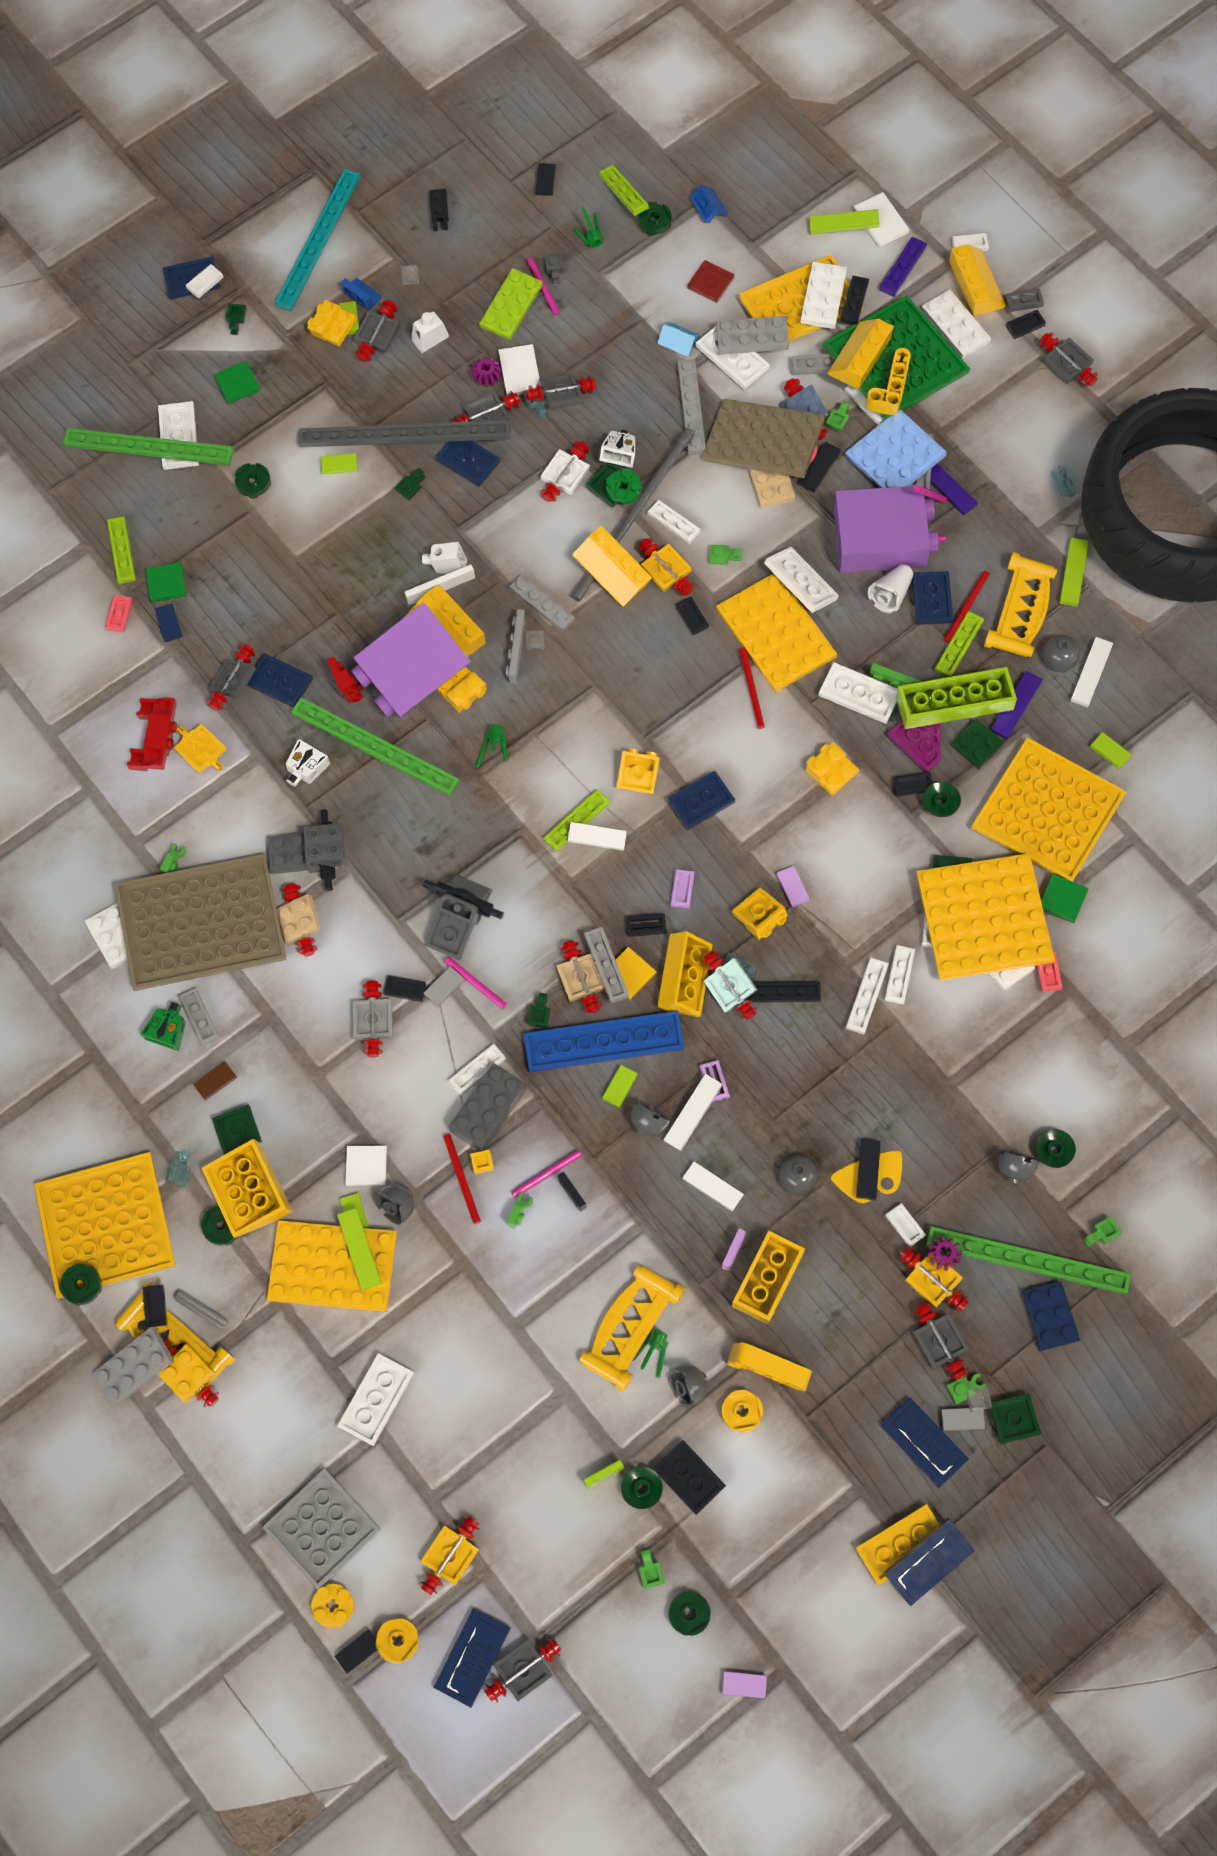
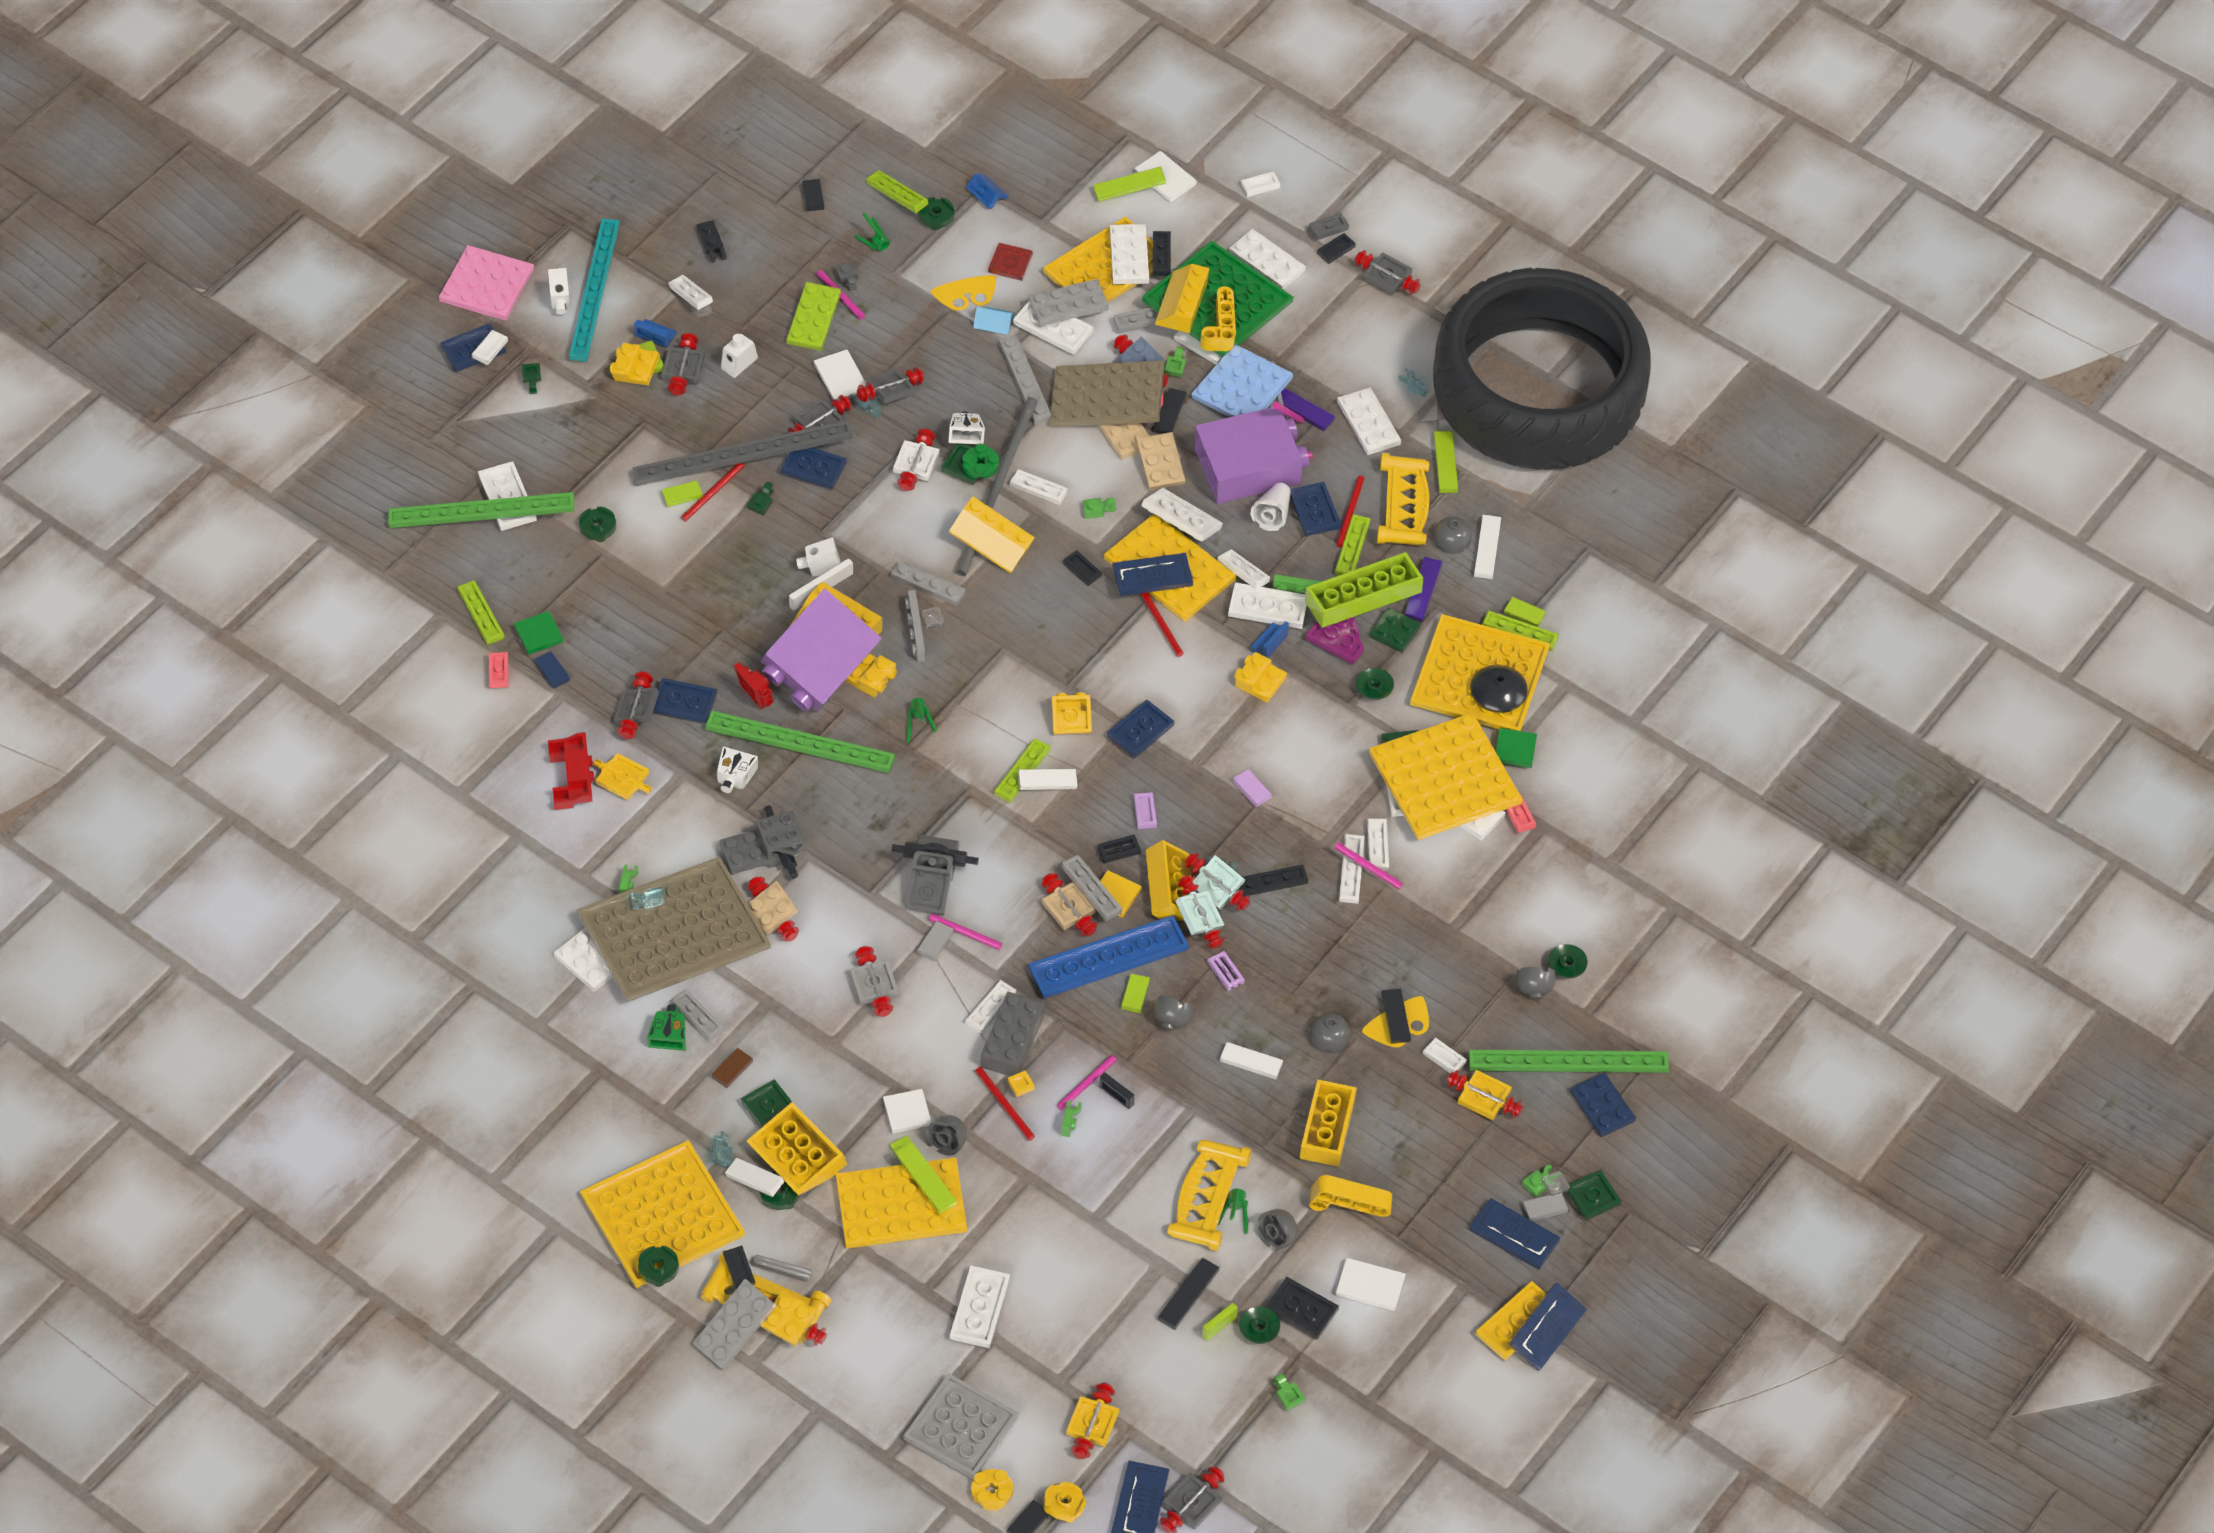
camera: 20 degrees left, 15 degrees down
(182, 888) = (651, 898): none -> clear light blue plate
(199, 1207) = (754, 1177): none -> white tile
(223, 214) = (486, 282): none -> bright pink plate
(237, 382) = (552, 436): green tile -> none
(283, 234) = (559, 290): none -> white torso
(355, 475) = (709, 494): none -> red axle
(403, 258) = (690, 292): none -> white tile
(405, 988) = (897, 950): black tile -> none
(486, 371) = (807, 382): magenta gear -> none
(539, 1014) = (1037, 944): dark green plate -> none
(582, 1432) = (1188, 1293): none -> black tile
(653, 300) = (957, 289): none -> yellow piece
(666, 567) = (1045, 527): yellow plate -> none
(693, 1112) = (1213, 1000): white tile -> none
(701, 1617) = (1333, 1431): dark green plate -> none
(703, 1015) = (1200, 912): none -> light aqua plate
(733, 1250) = (1287, 1109): lavender tile -> none
(744, 1685) = (1404, 1468): lavender tile -> none
(748, 1401) = (1331, 1252): yellow plate -> none
(755, 638) = (1152, 574): none -> dark blue tile
(760, 913) = (1228, 815): yellow plate -> none
(765, 1465) = (1370, 1284): none -> white tile
(796, 518) = (1160, 461): none -> tan plate
(846, 649) = (1244, 569): none -> white tile
(852, 730) = (1270, 639): none -> blue panel
(884, 998) = (1368, 865): none -> dark pink bar
(903, 266) = (1199, 216): dark purple tile -> none
(912, 783) = (1341, 677): black tile -> none
(941, 1341) = (1506, 1145): dark grey plate -> none
(944, 1246) = (1489, 1066): magenta gear -> none
(976, 280) = (1275, 216): yellow slope -> none
(1010, 513) = (1369, 421): none -> white plate
(1062, 841) = (1497, 695): none -> black dish
(1101, 768) = (1521, 628): none -> lime tile
(1104, 1231) = (1634, 1022): bright green plate -> none

